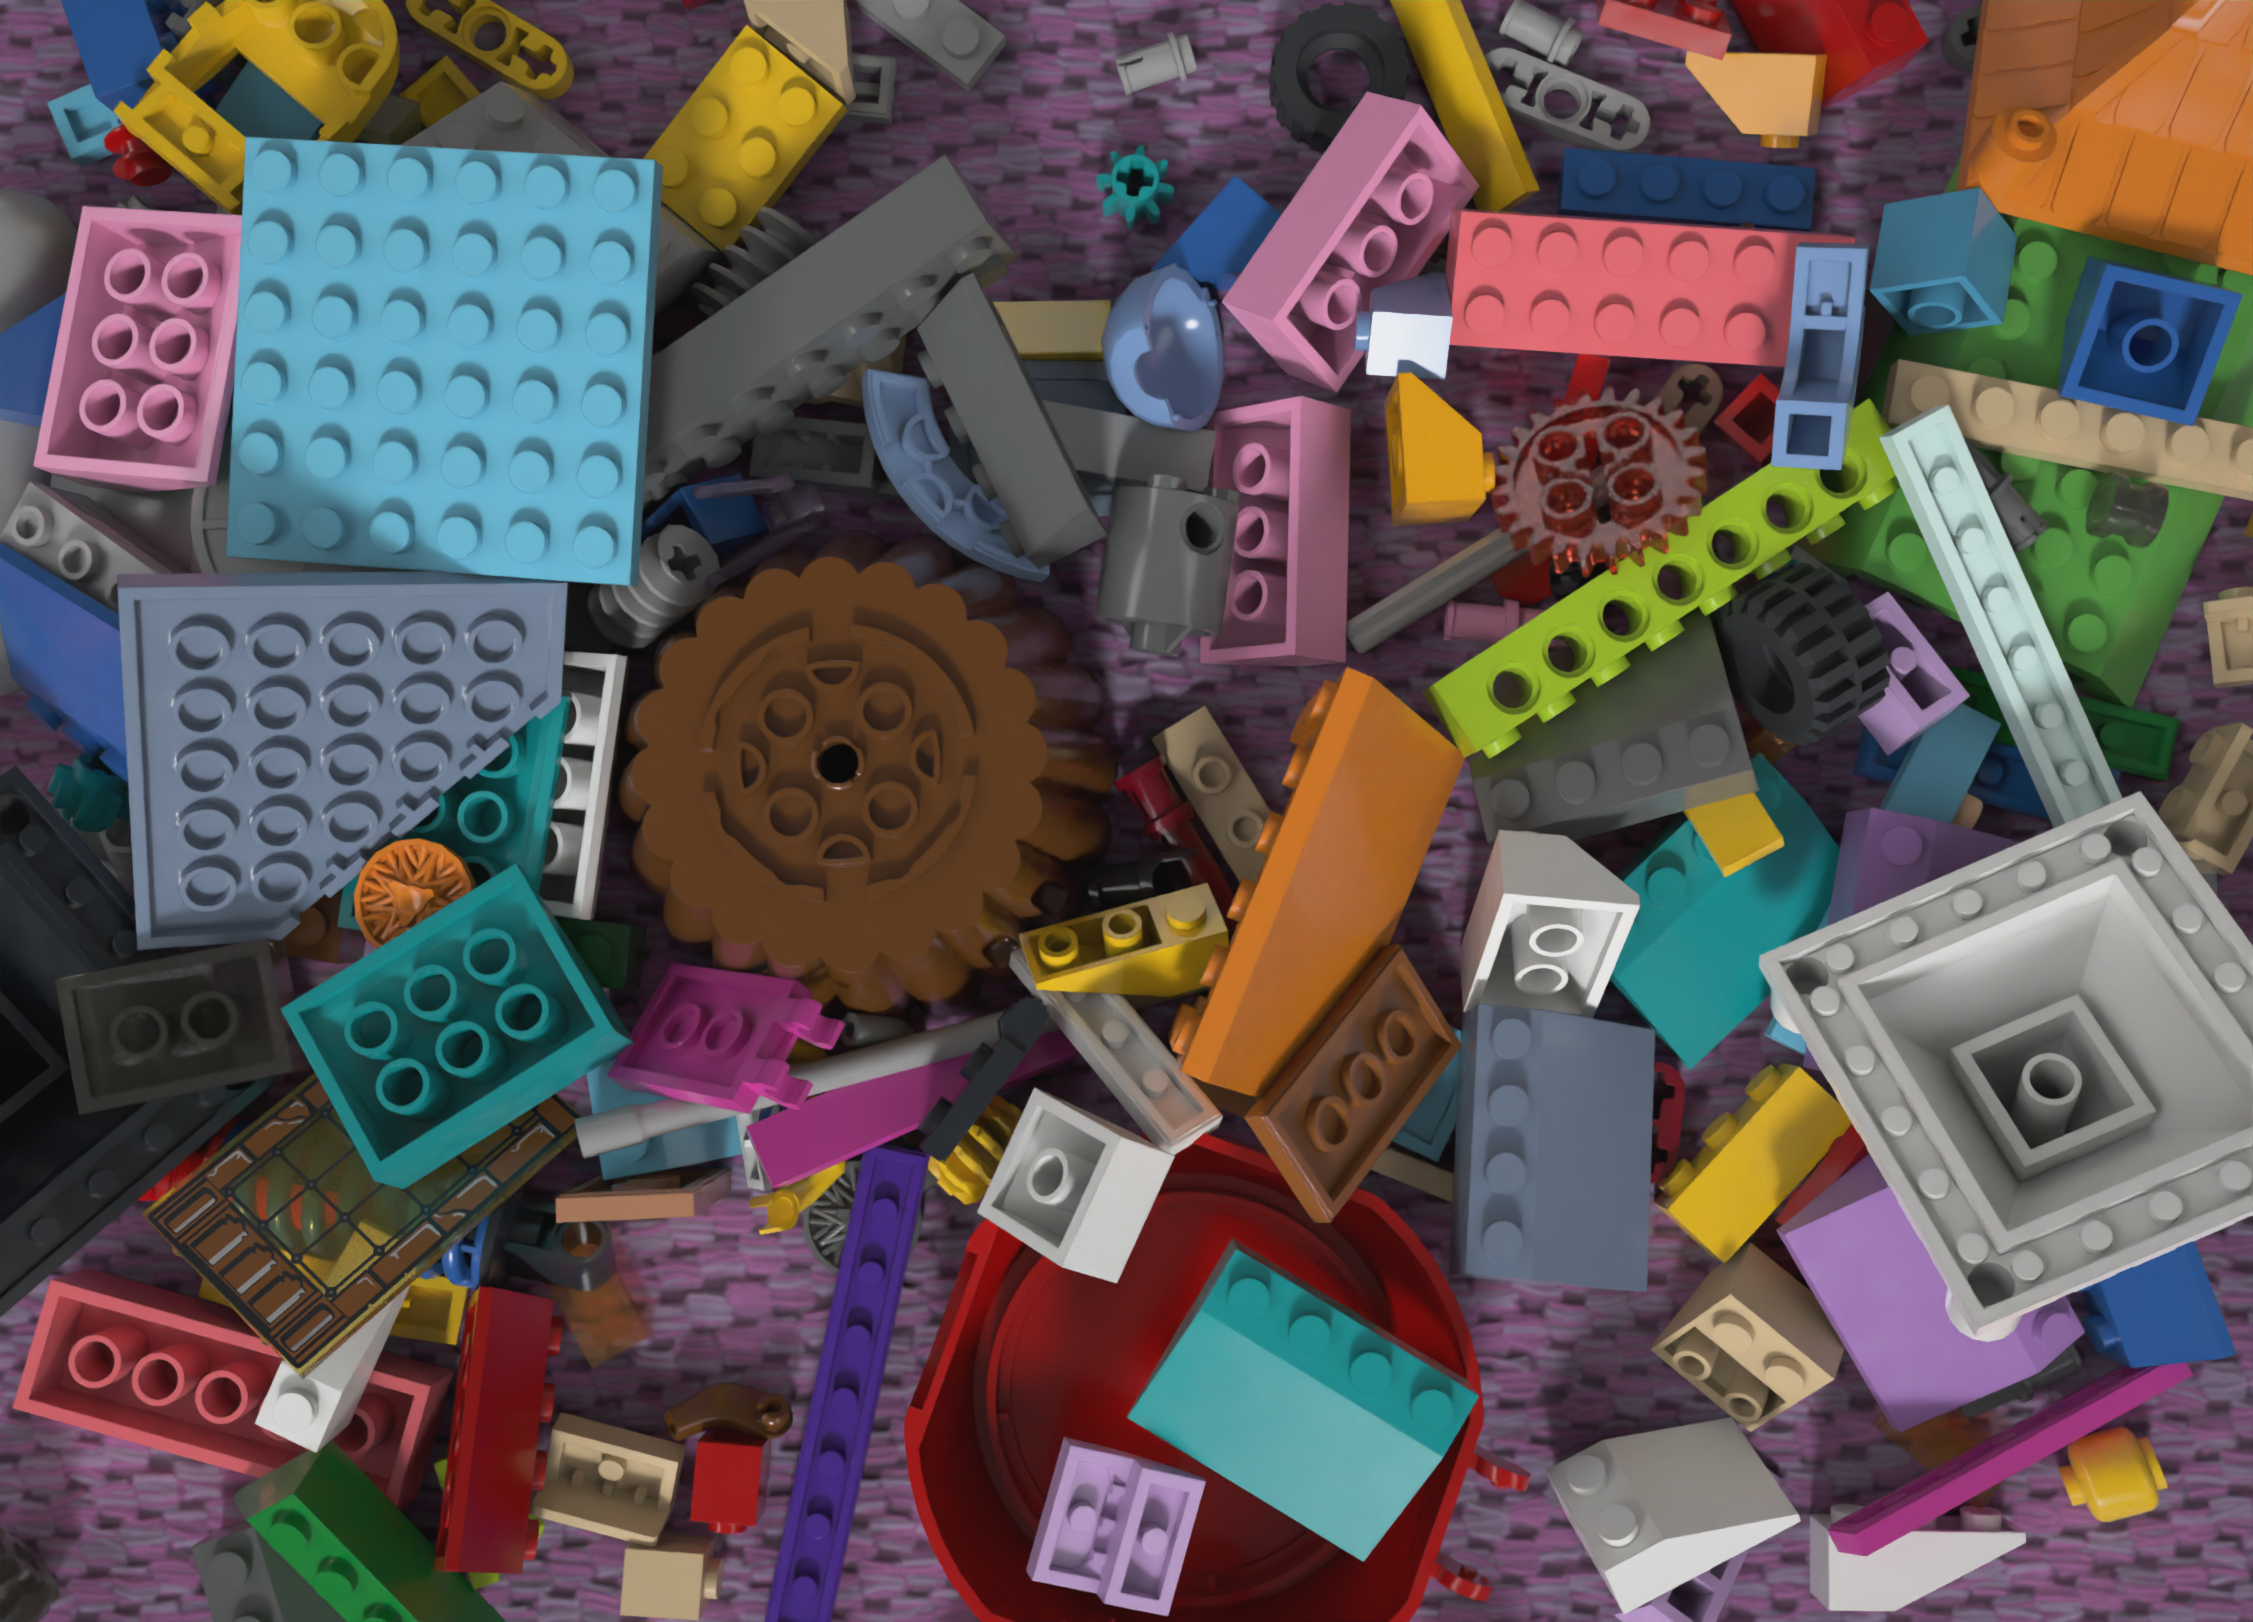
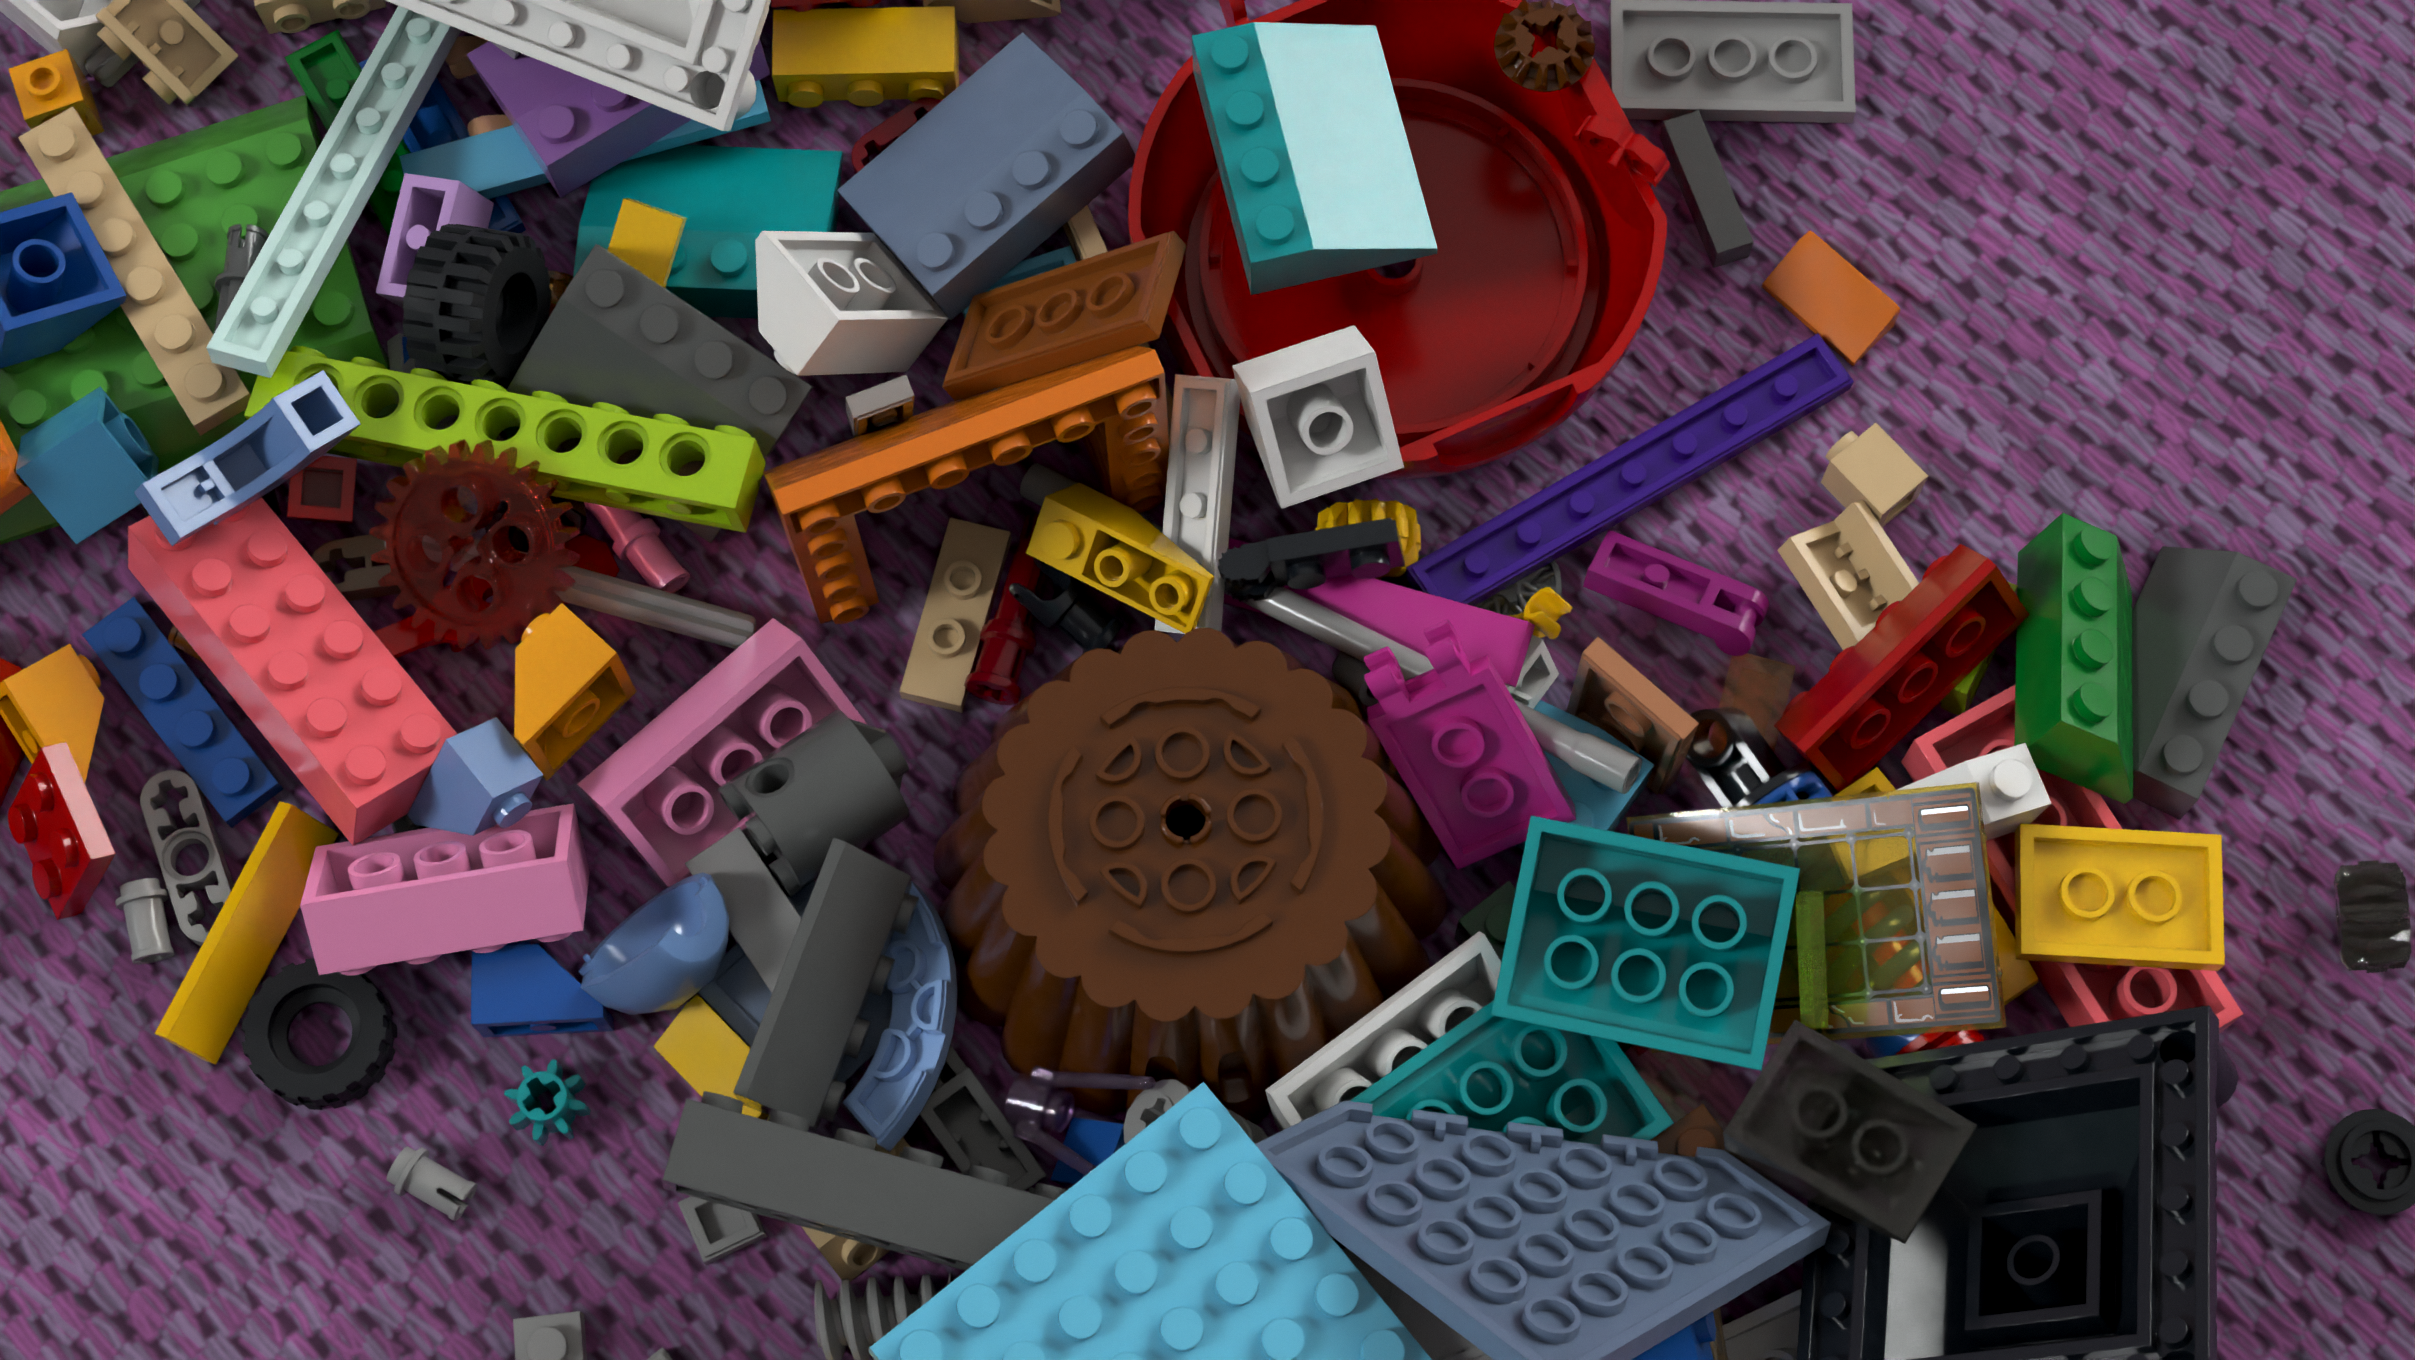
camera: 135 degrees left, 15 degrees down
(163, 1406) = (2119, 897): none -> yellow plate
(325, 1130) = (1811, 957): none -> clear neon green tile
(407, 886) = (1591, 1081): orange wheel -> none
(728, 1339) = (1678, 592): none -> magenta plate
(730, 1480) = (1766, 499): red brick -> none
(732, 1408) = (1720, 546): reddish brown arm -> none
(1115, 1526) = (1514, 191): lavender slope -> none
(1423, 878) = (880, 406): none -> light grey tile
(2127, 509) = (171, 188): clear smoke wheel -> none

